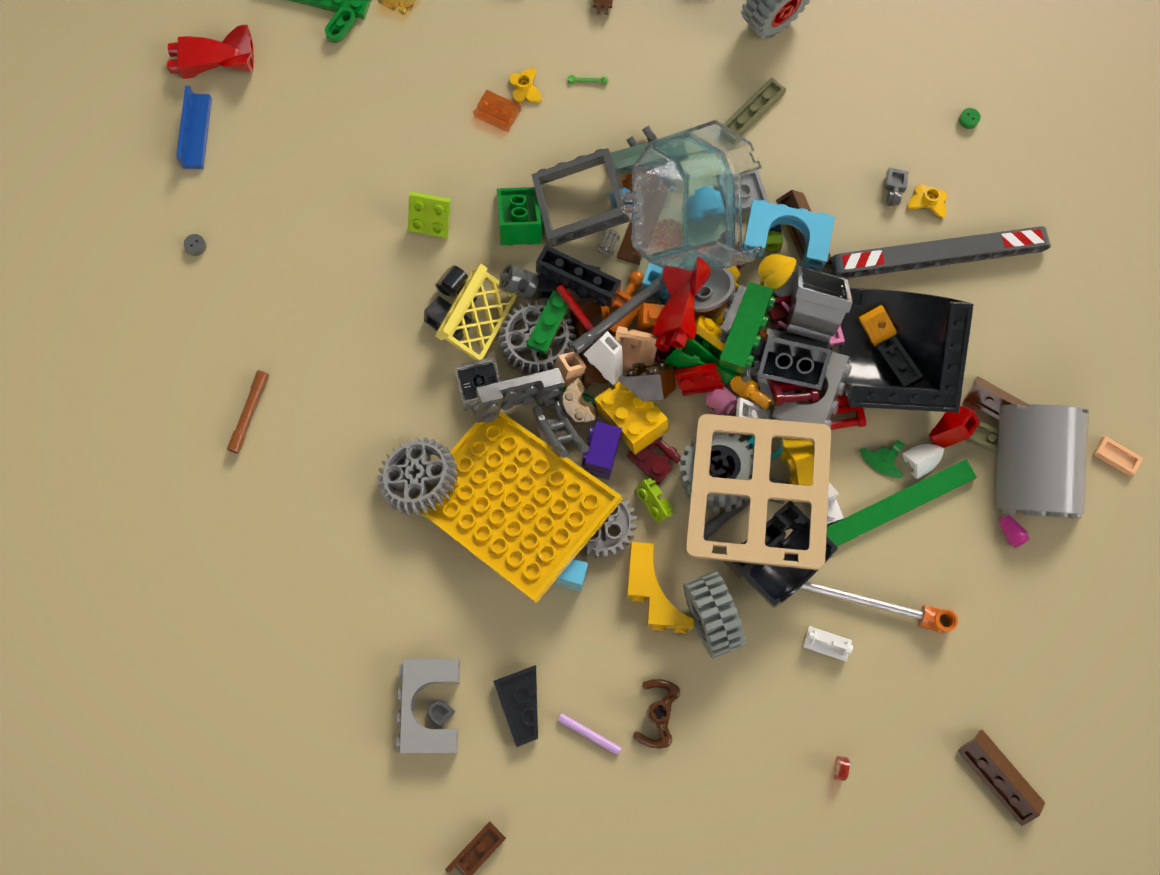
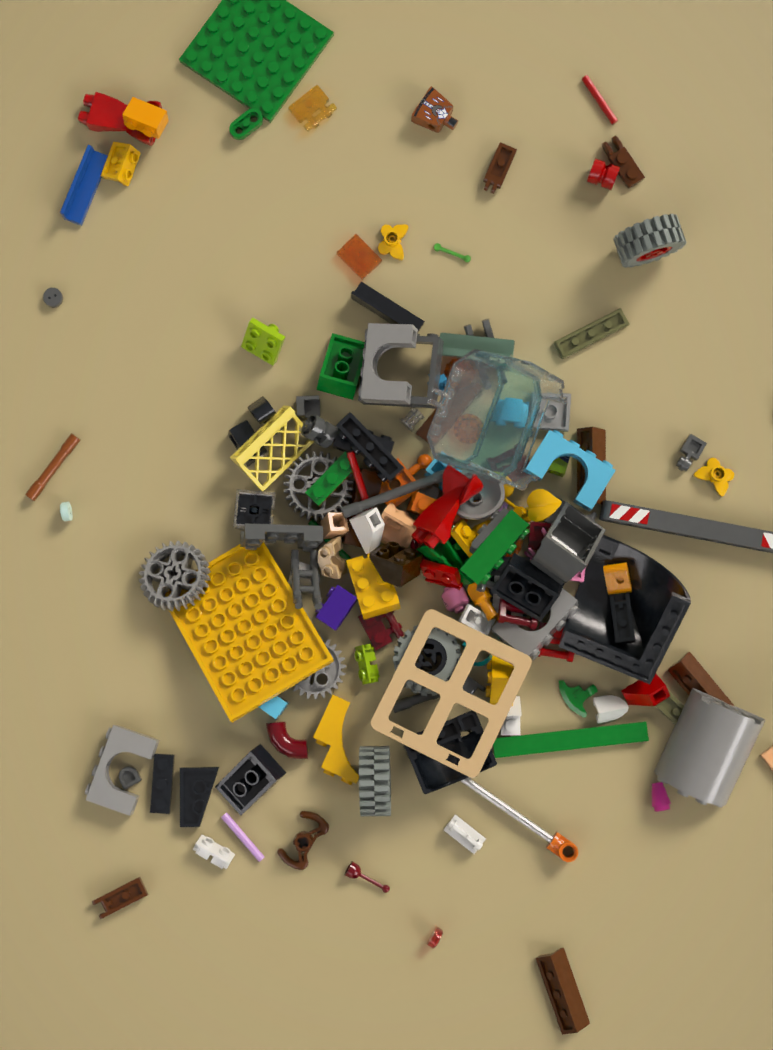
camera: 20 degrees right, 10 degrees up
(225, 96) = (121, 163): none -> yellow bracket
(236, 41) = (145, 118): none -> light orange brick
(277, 451) = (66, 511): none -> light aqua tile
(479, 707) = (162, 783): none -> black plate
(496, 262) = (307, 406): none -> dark grey panel
(540, 148) = (384, 306): none -> black panel
(549, 170) = (378, 340): none -> light grey arch
(553, 758) = (206, 846): none -> white hinge
(575, 666) = (250, 779): none -> black slope
(599, 614) = (284, 743): none -> dark red cylinder
(725, 727) = (354, 871): none -> dark red hinge

